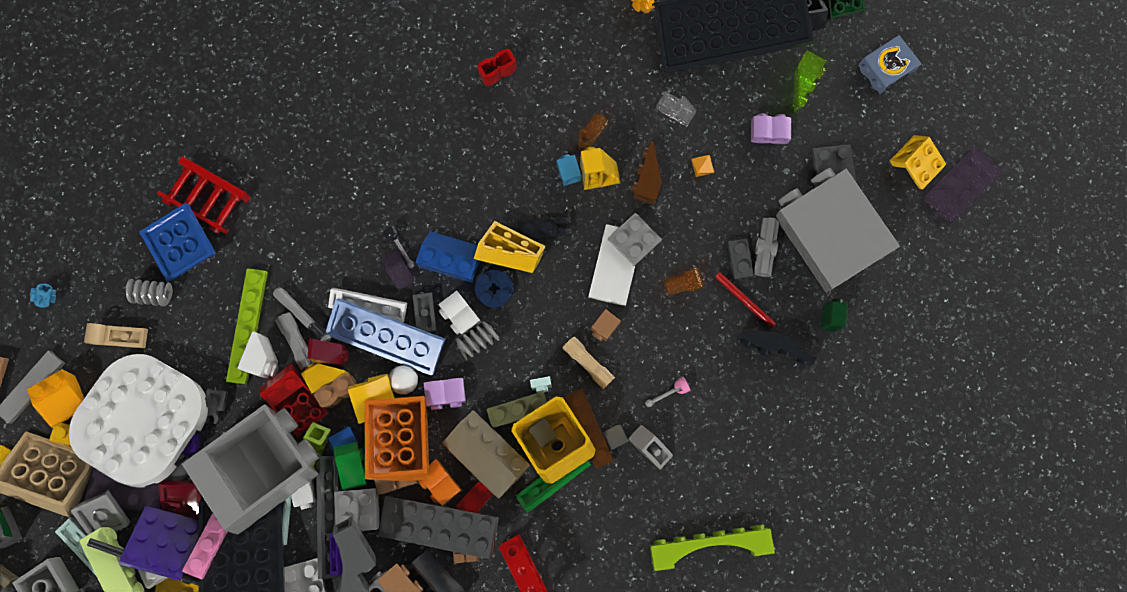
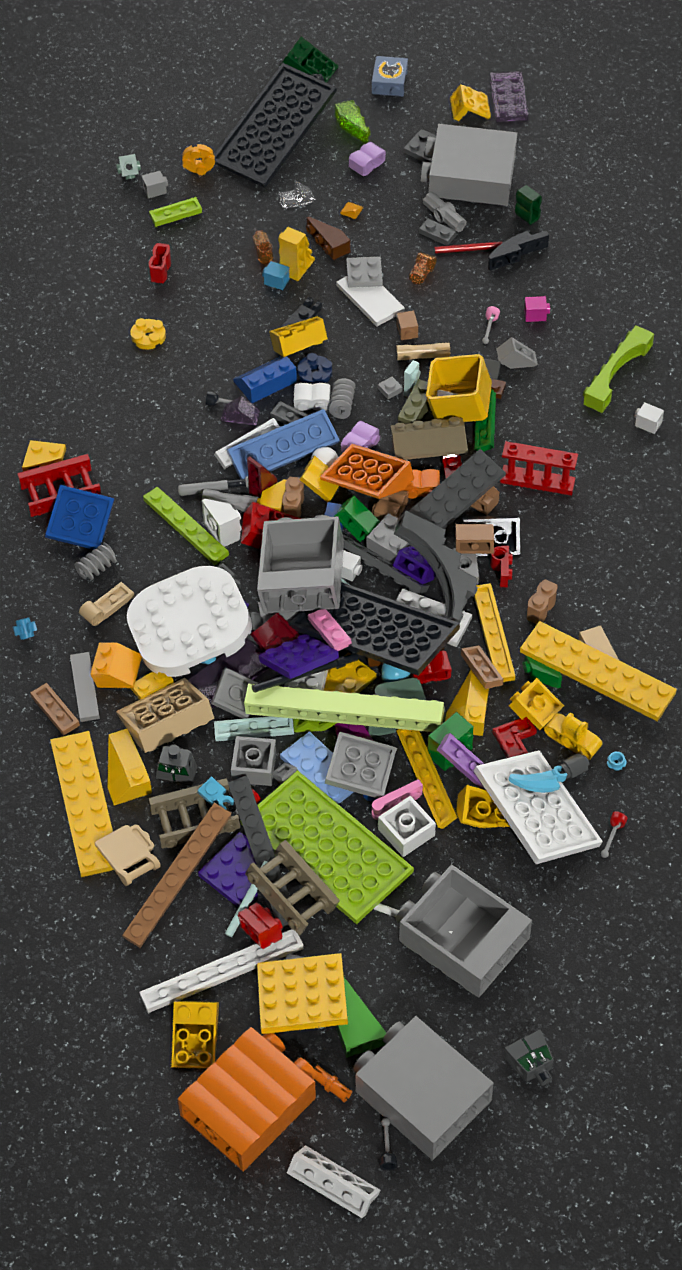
camera: 50 degrees left, 25 degrees down
(228, 153) = (43, 454): none -> yellow wing
(417, 112) = (148, 326): none -> yellow plate
(527, 366) = (389, 387): none -> light grey plate
(570, 27) = (175, 211): none -> lime plate
(720, 420) = (536, 309): none -> dark pink brick

